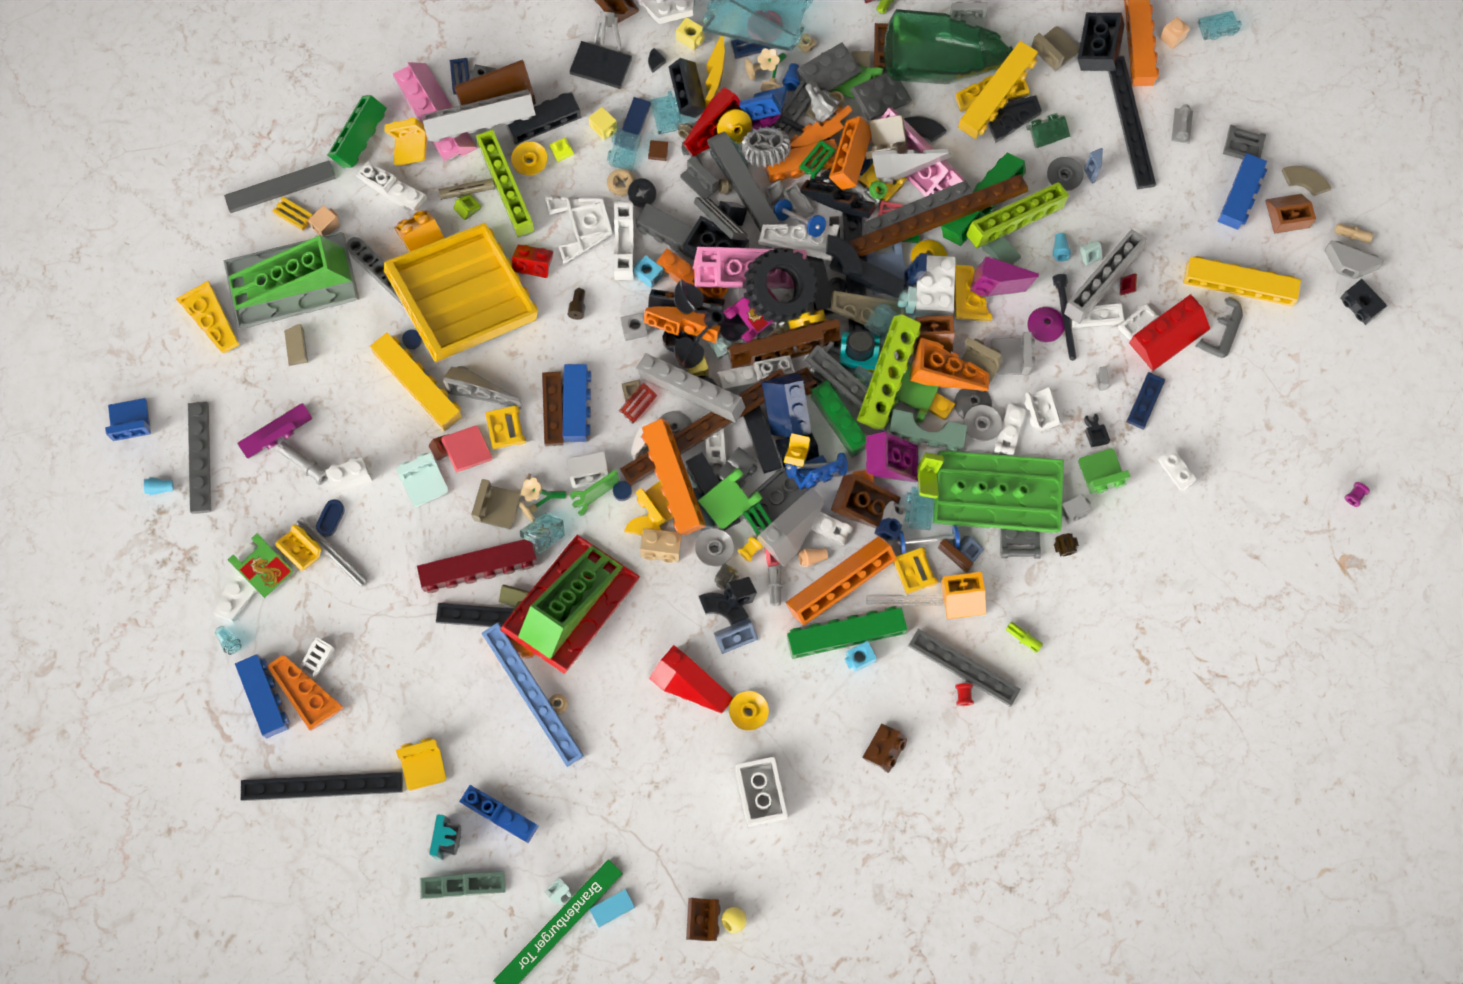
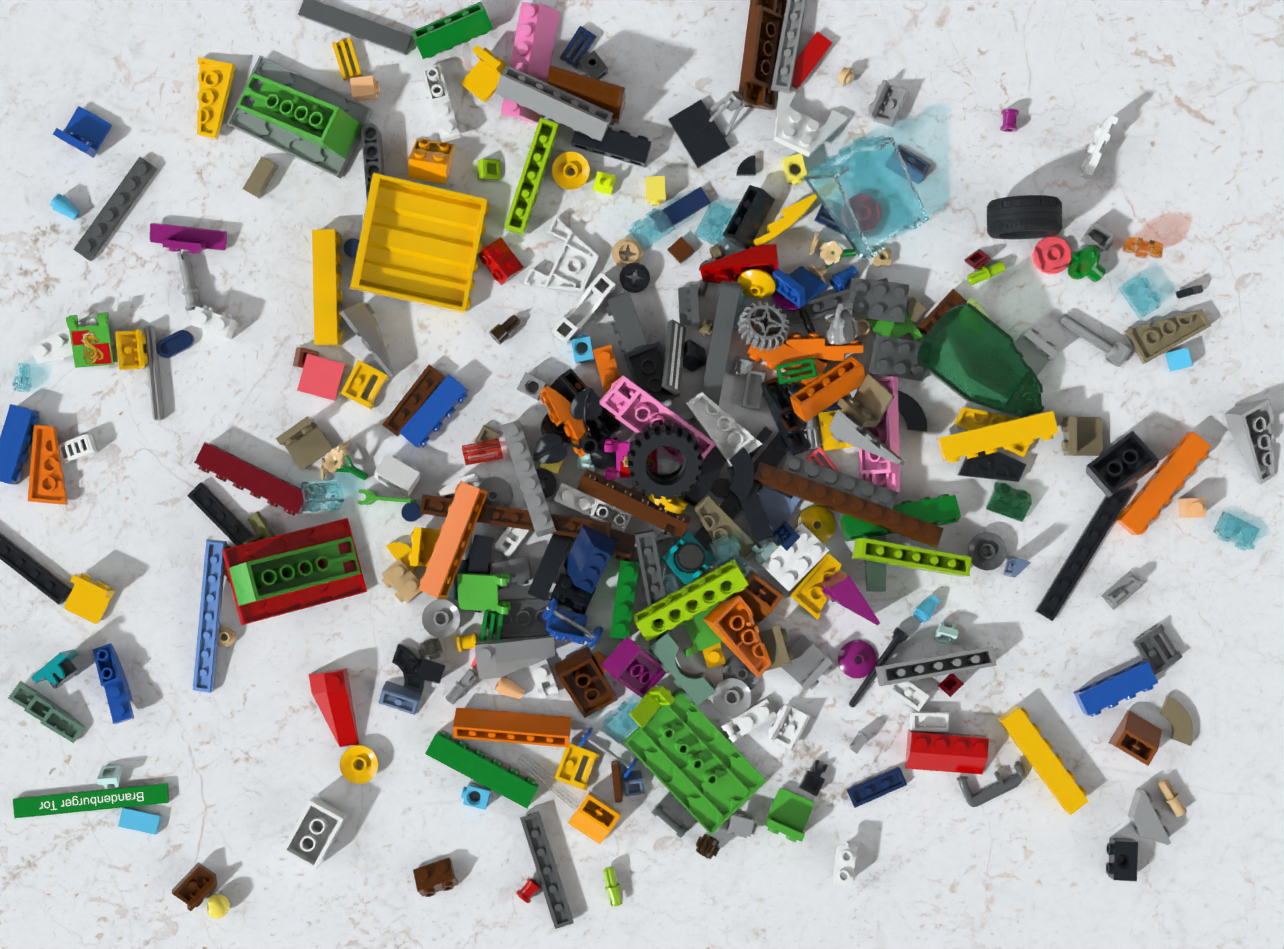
camera: 45 degrees right, 15 degrees up
(422, 479) = (266, 374): light aqua bracket -> none
(464, 189) = (479, 144): dark tan pin -> none
(797, 450) = (561, 604): yellow slope -> none
(815, 226) = (739, 431): blue axle -> none
(881, 187) = (822, 442): bright green plate -> none
(891, 522) = (591, 715): leg -> none

